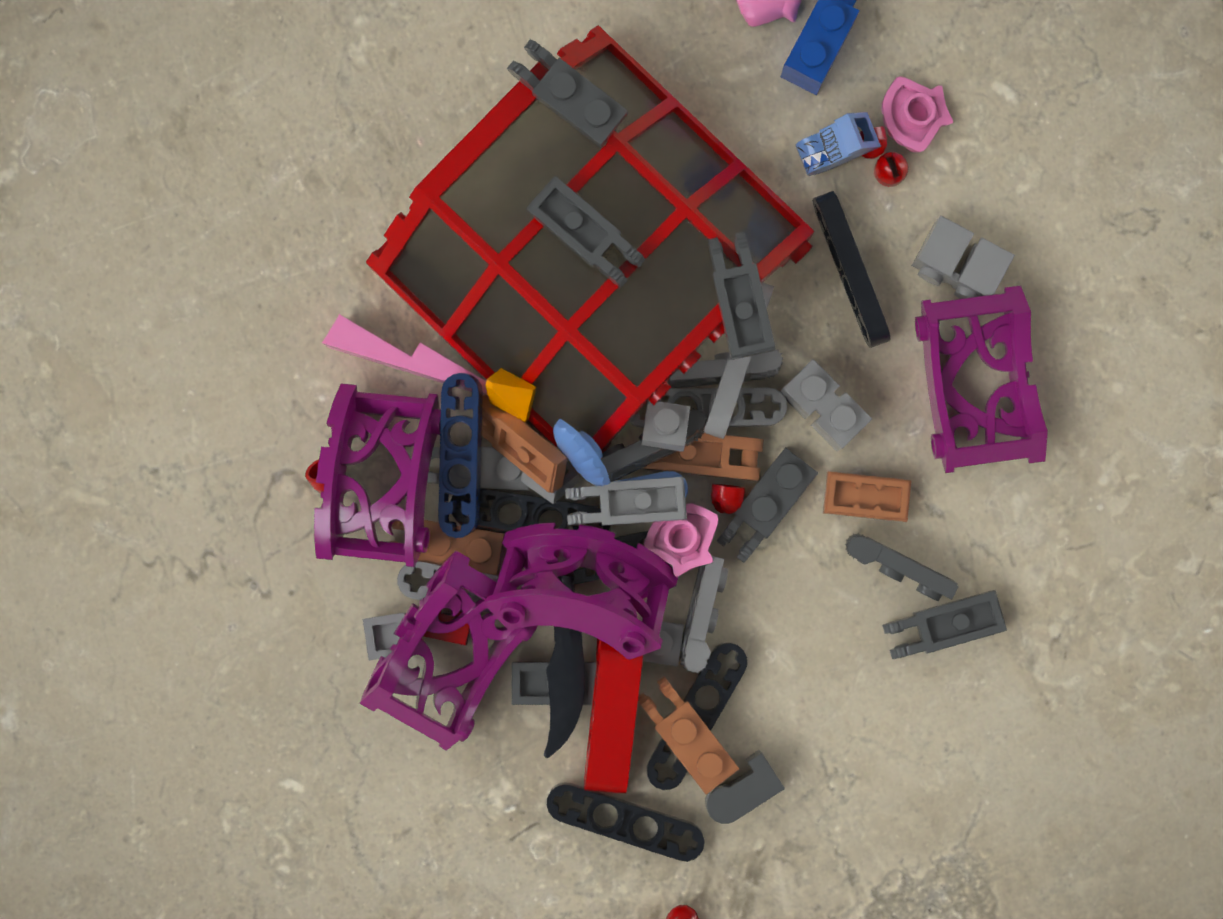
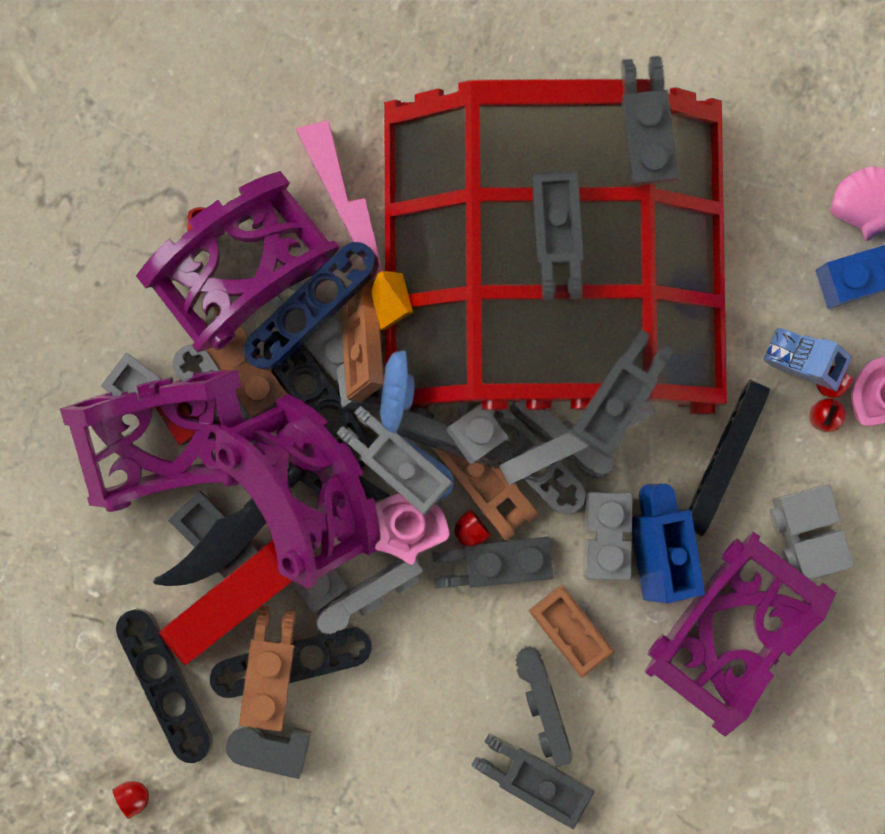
camera: 40 degrees right, 0 degrees up
(873, 372) = (665, 547): none -> blue brick

